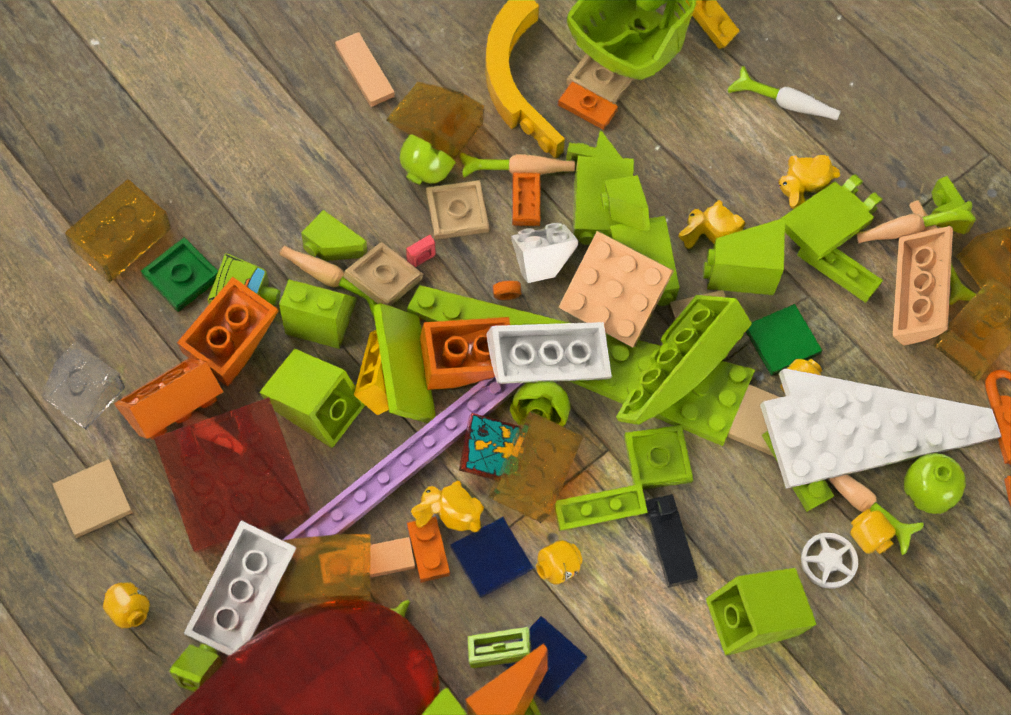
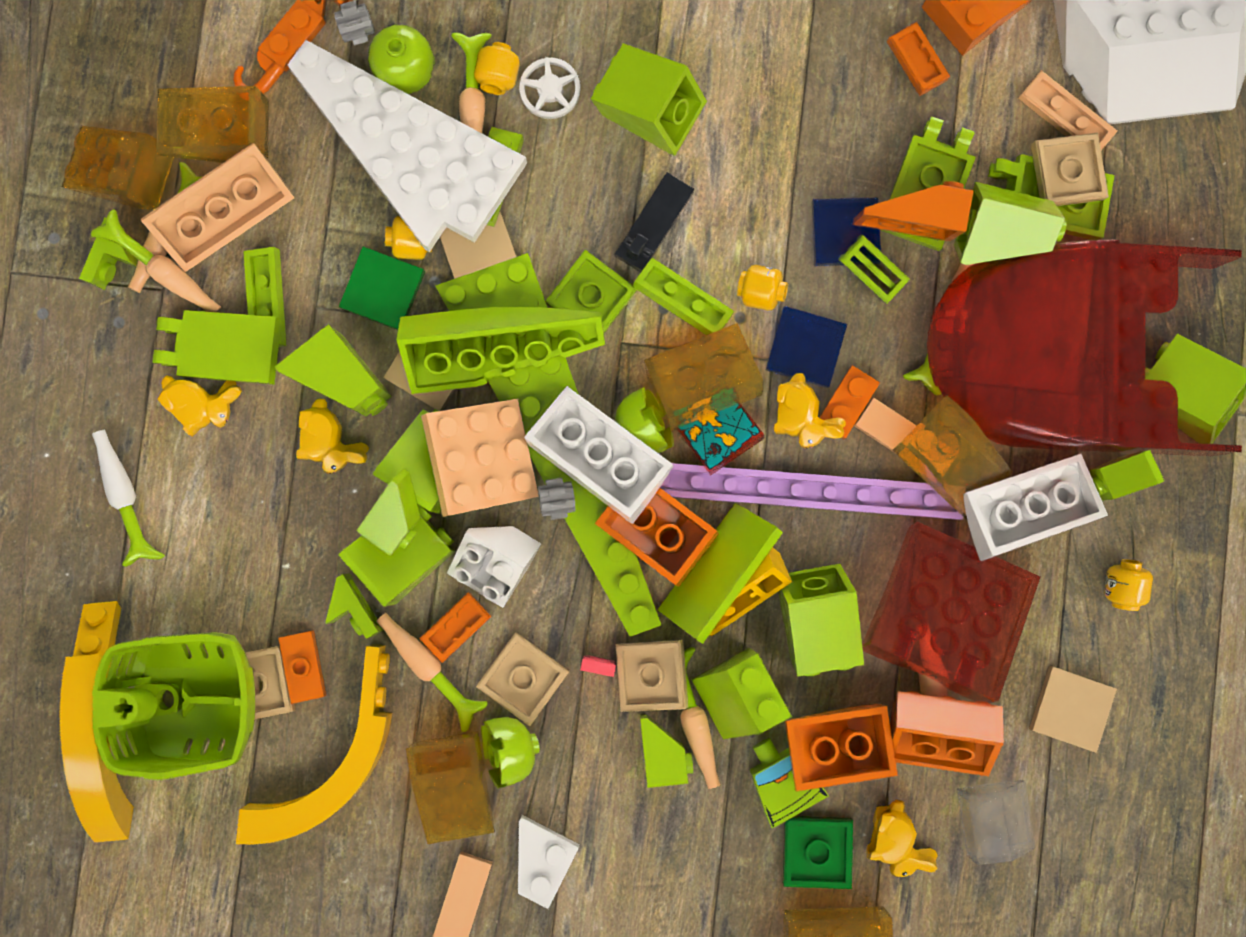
camera: 130 degrees left, 20 degrees up
(138, 316) = (894, 841): none -> yellow animal
(343, 130) = (542, 861): none -> white wing
(507, 290) = (563, 556): orange tile -> none
(546, 309) = (556, 498): none -> light grey gear
(986, 473) = (354, 22): none -> light grey gear

